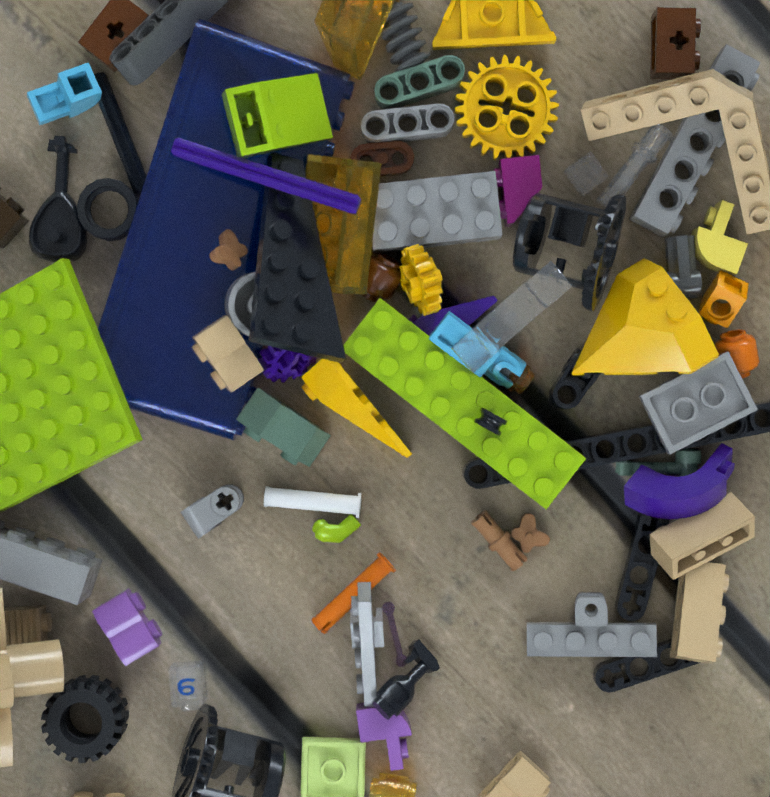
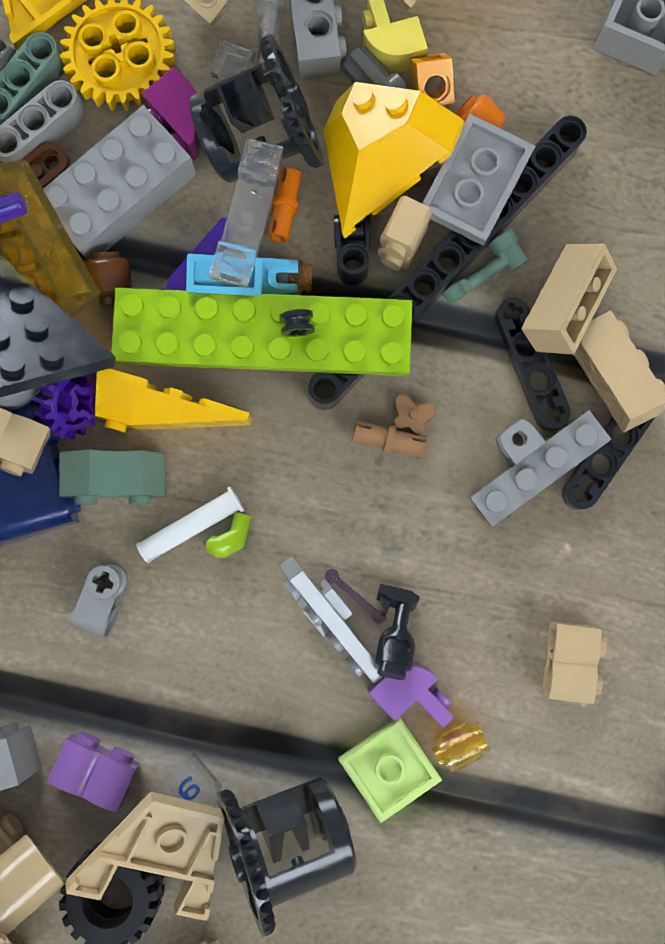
camera: 35 degrees left, 5 degrees down
(147, 708) = (160, 838): none -> tan wing
(342, 603) = (285, 603): orange pin -> none
(421, 279) = (143, 245): yellow gear -> none
(547, 316) = (284, 205): none -> orange pin
(616, 402) = (404, 233): none -> tan brick
(683, 495) = (522, 277): dark purple arch -> none

